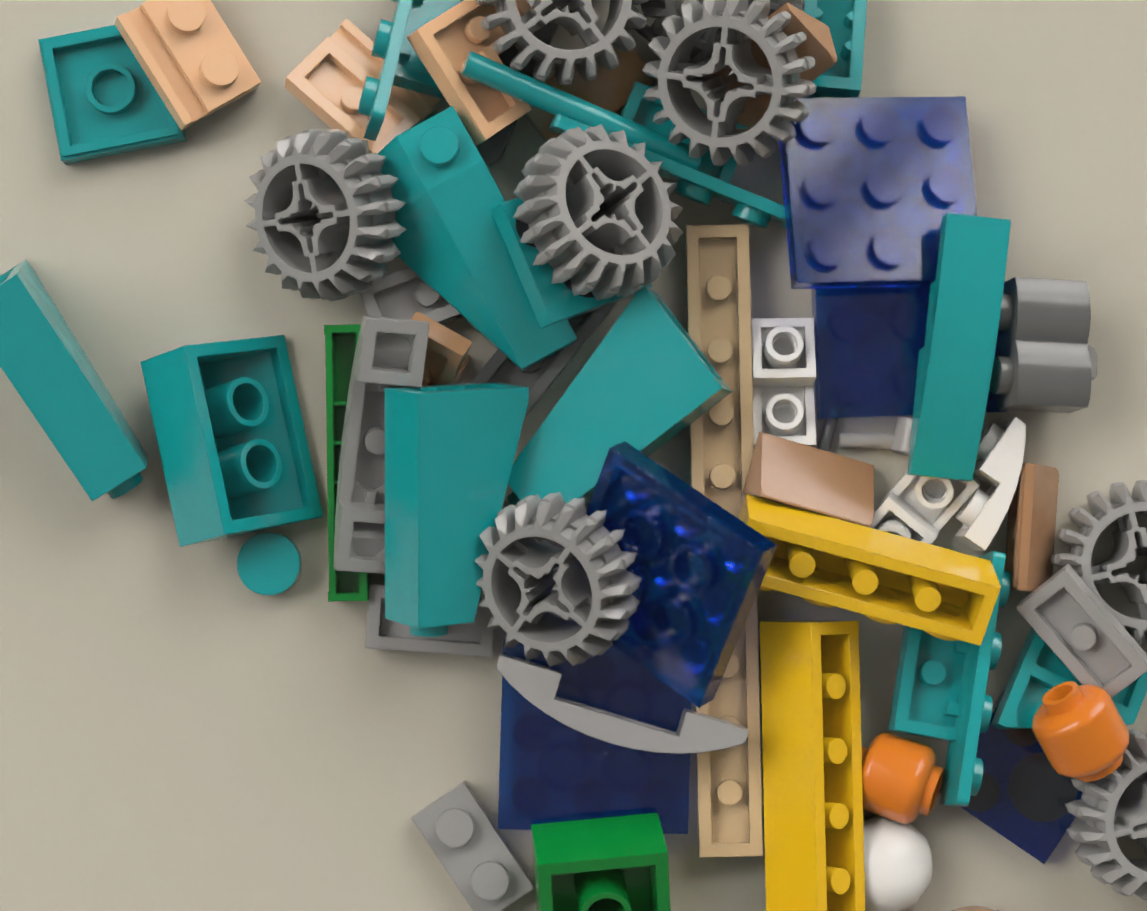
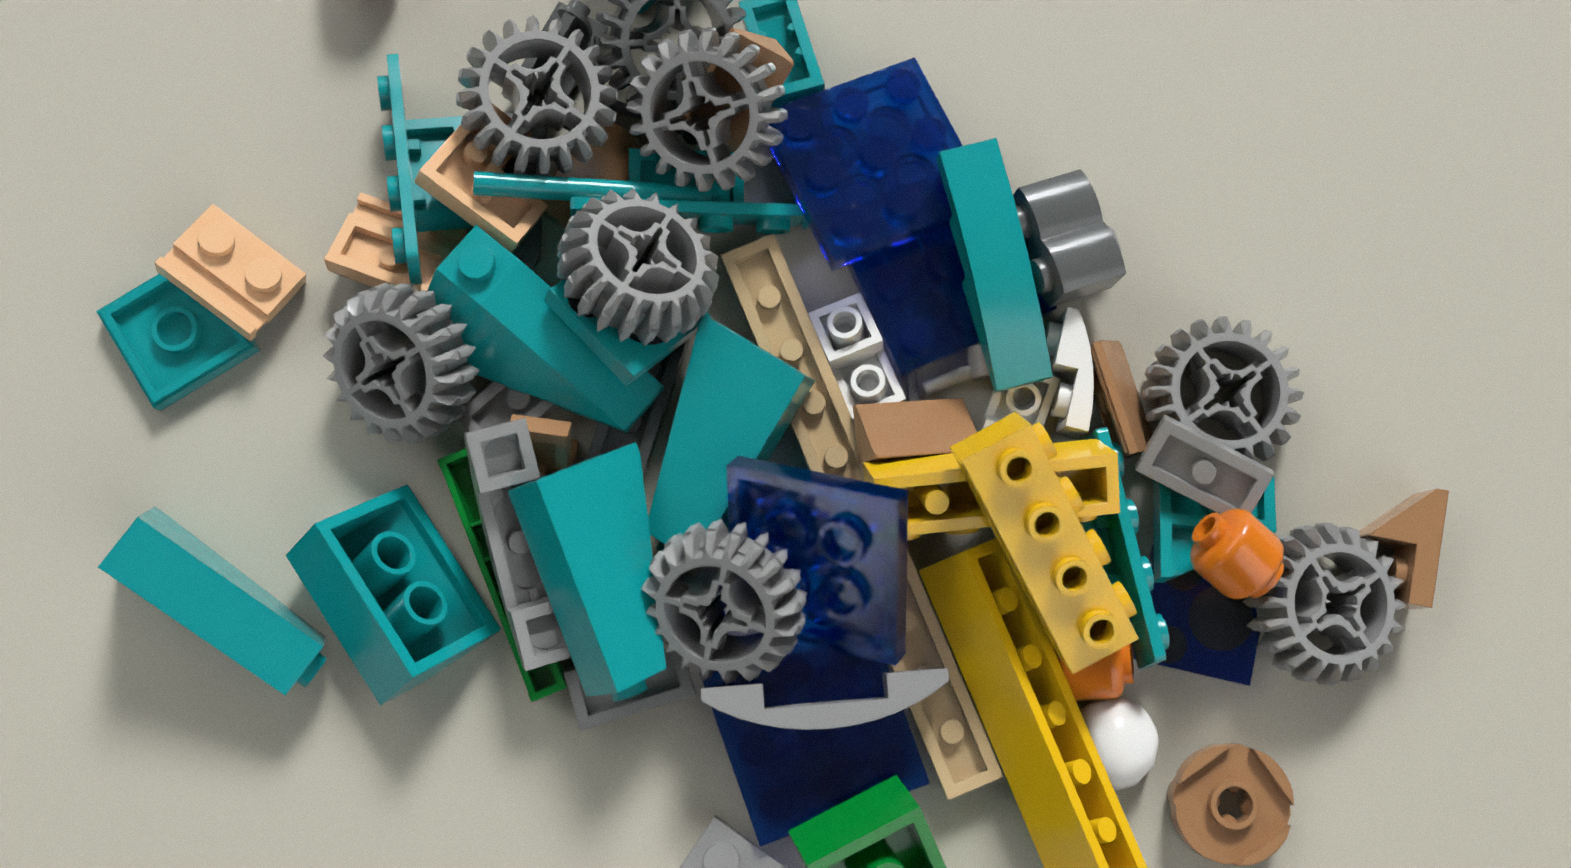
camera: 25 degrees left, 5 degrees down
(269, 563) = (468, 690): teal tile -> none
(893, 645) = (1045, 540): none -> yellow brick

